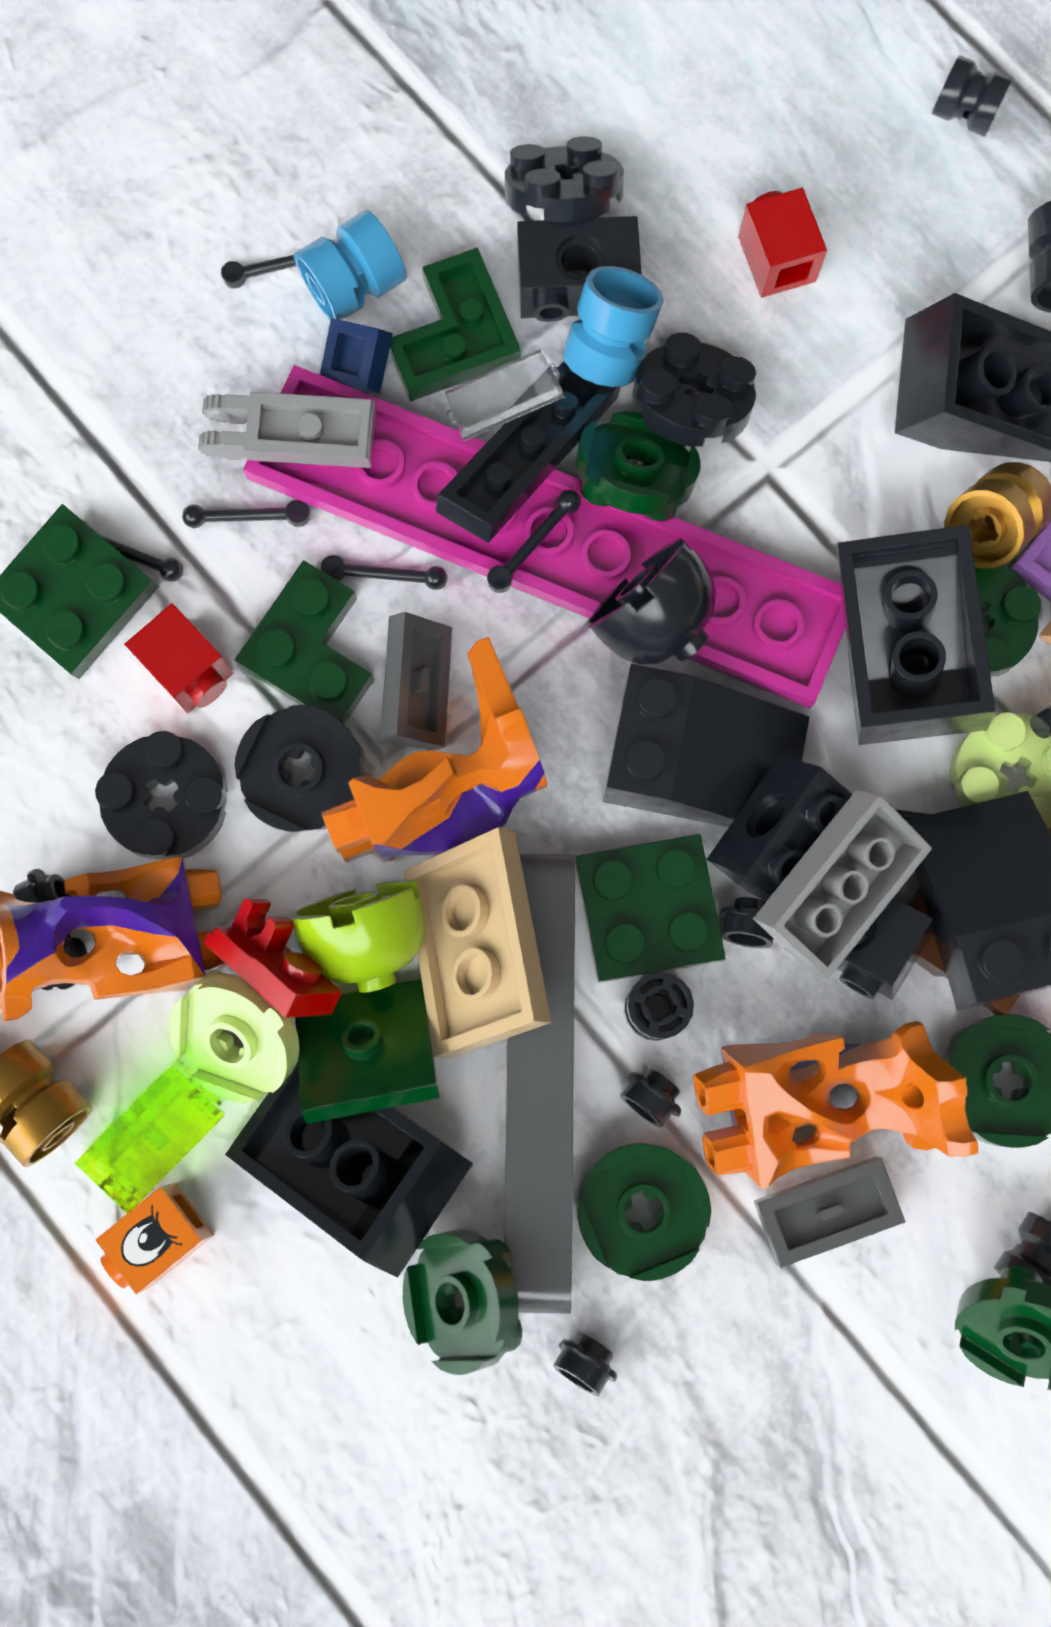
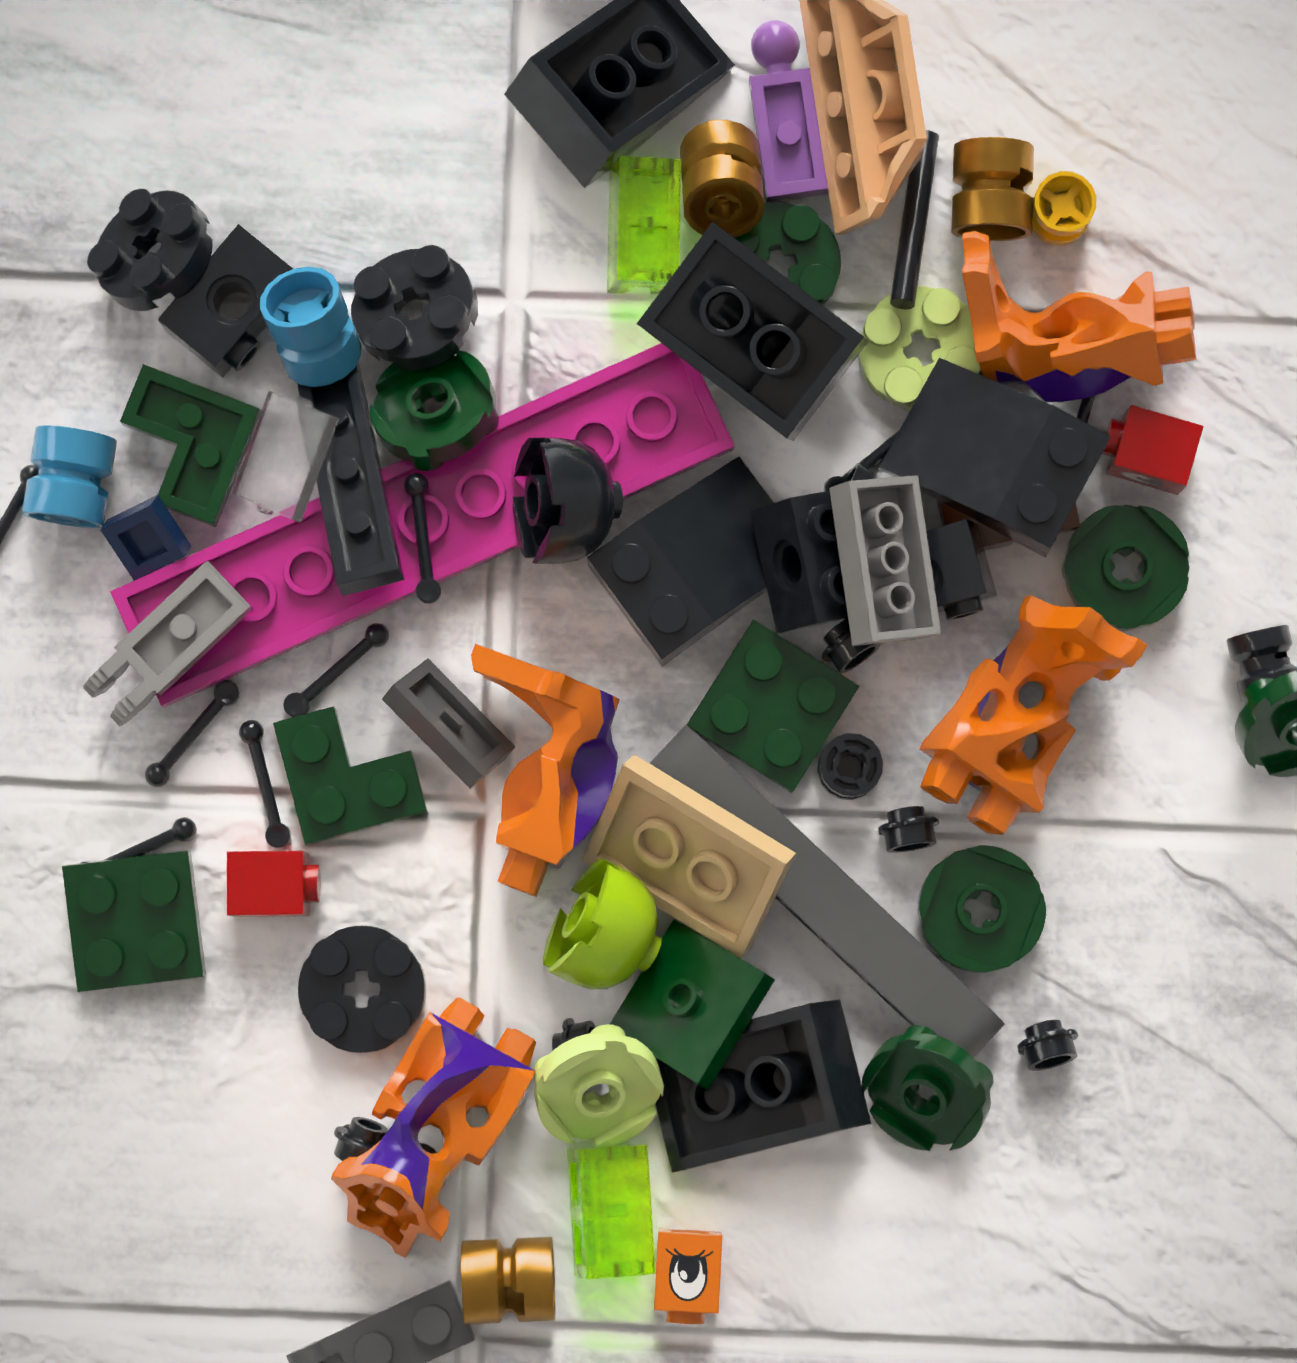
camera: 45 degrees left, 5 degrees up
(227, 636) = (277, 833): none -> black hinge
(263, 960) = (562, 1018): red plate -> none
(289, 734) = (420, 901): black plate -> none
(781, 241) = (352, 126): red brick -> none
(829, 1211) = (1100, 779): dark grey plate -> none
(914, 489) = (643, 223): none -> clear neon green hinge

